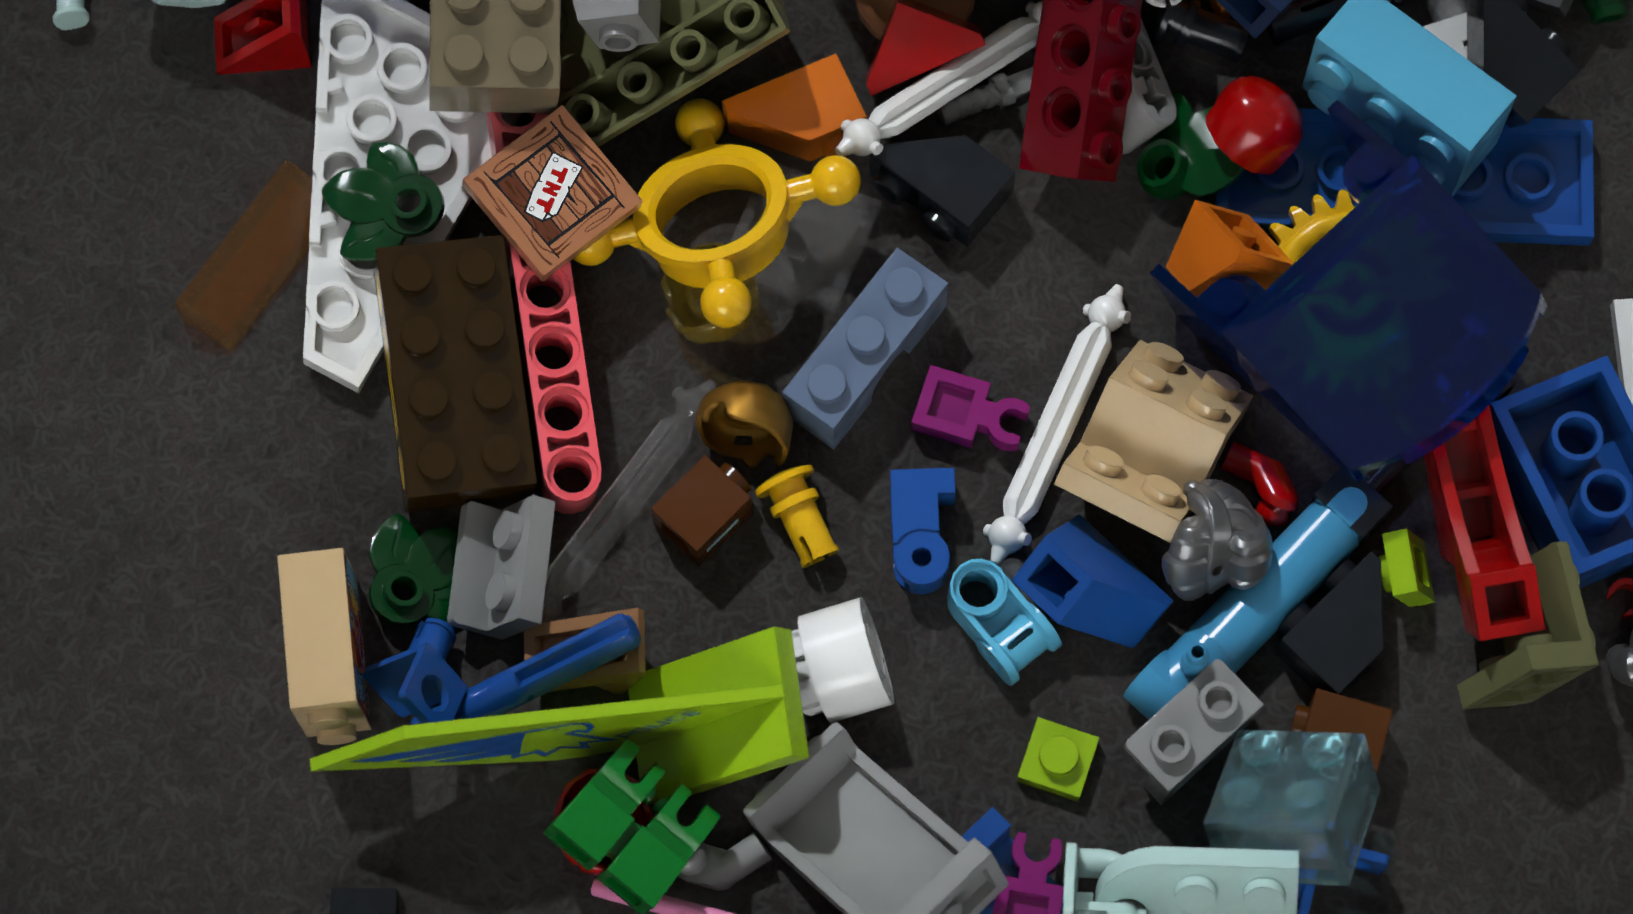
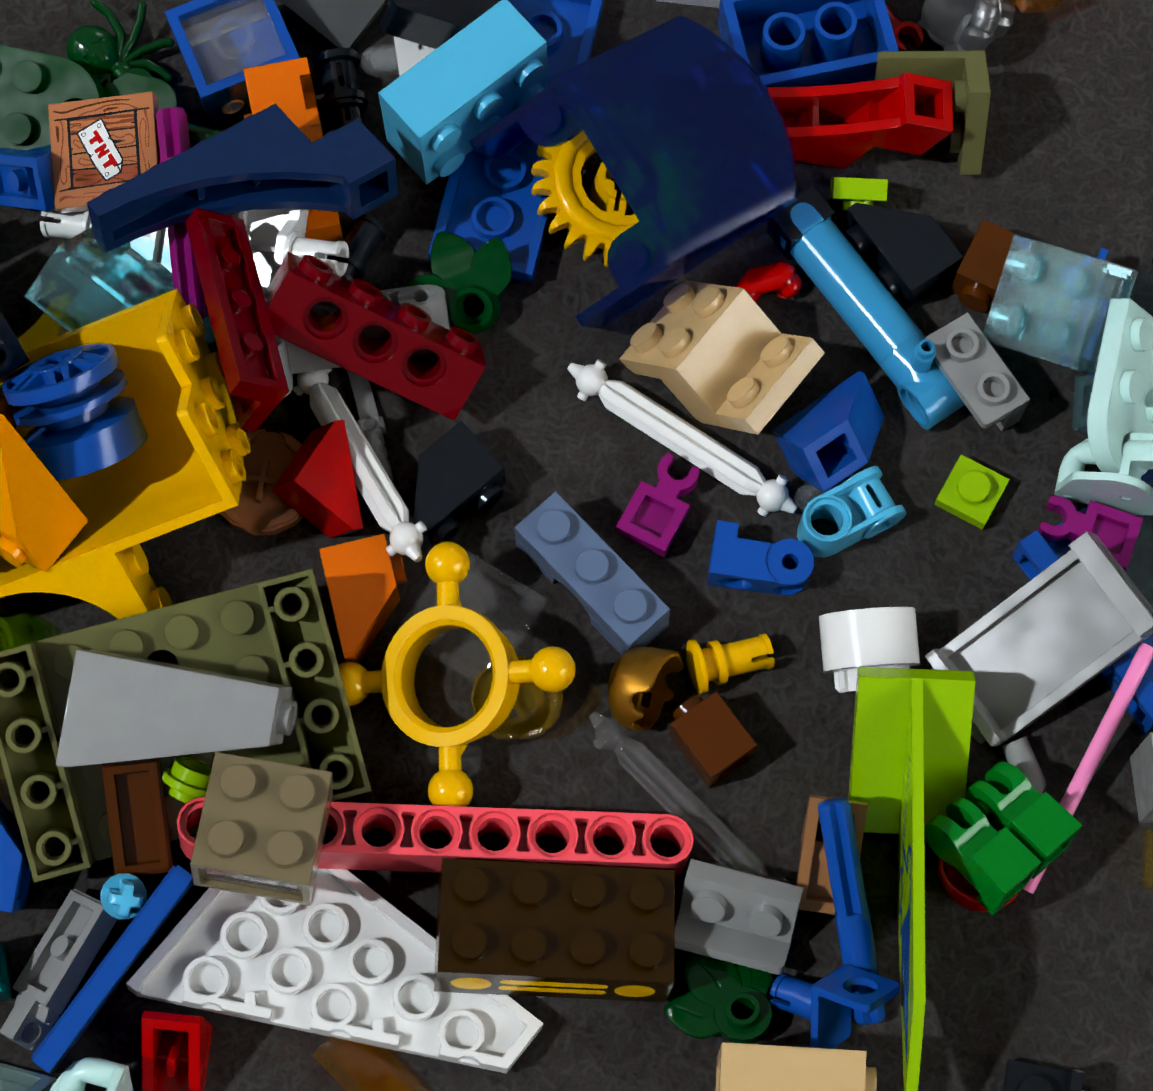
camera: 80 degrees left, 0 degrees up
(374, 201) = (377, 978): dark green plate -> none
(552, 193) = (411, 808): nougat tile -> none
(1219, 544) = (827, 313): flat silver hair -> none
(1224, 244) = (572, 266): orange slope -> none
(1255, 124) = (462, 218): red hair -> none

